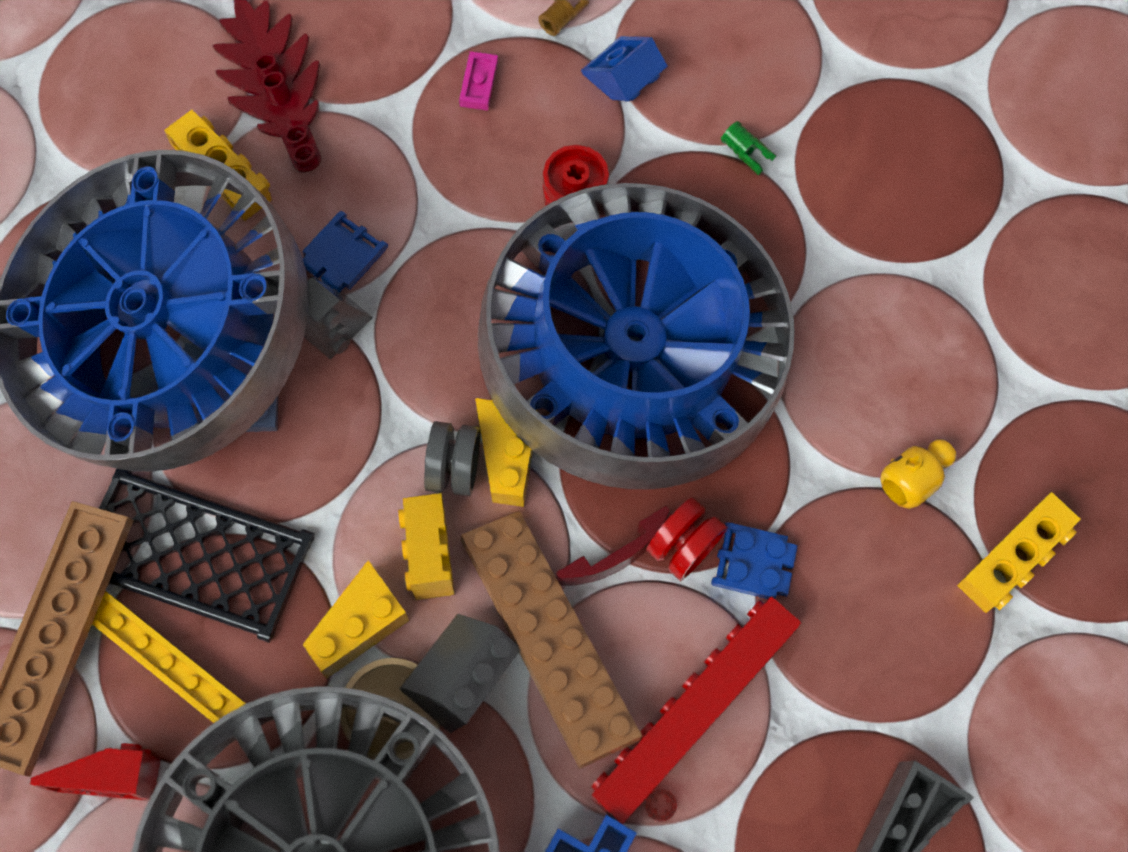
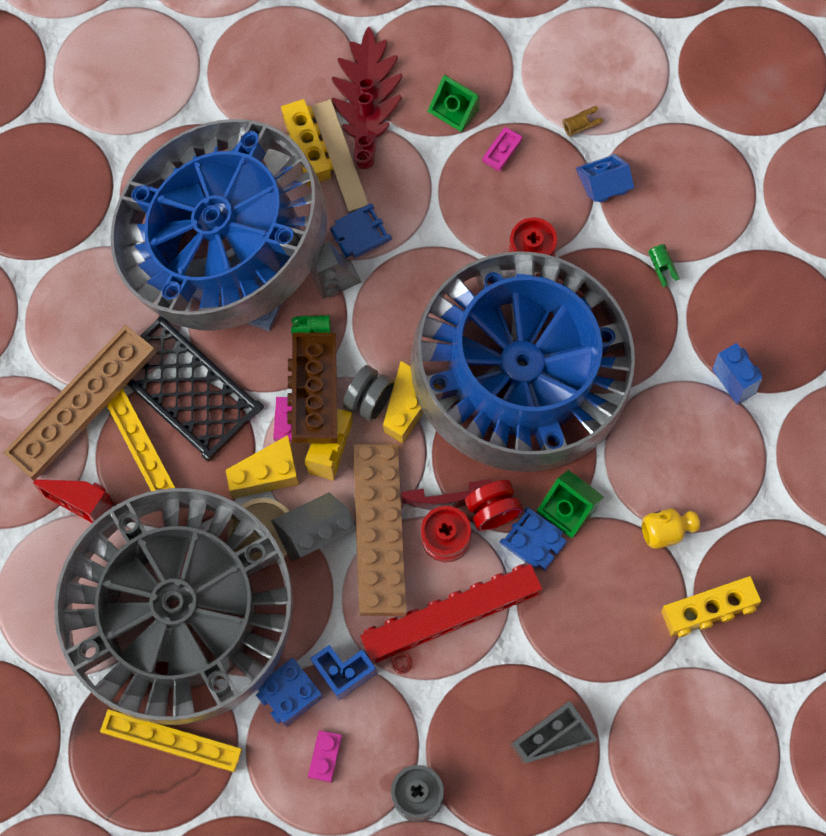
camera: 30 degrees right, 0 degrees up
(283, 178) = (340, 156): none -> tan tile
(331, 399) = (311, 324): none -> green hinge
(352, 538) = (281, 427): none -> dark pink plate
(375, 484) = (313, 388): none -> reddish brown plate
(392, 45) = (454, 103): none -> green slope
(643, 584) = (433, 529): none -> red wheel
(779, 495) = (570, 503): none -> green slope
(907, 243) = (737, 373): none -> blue brick

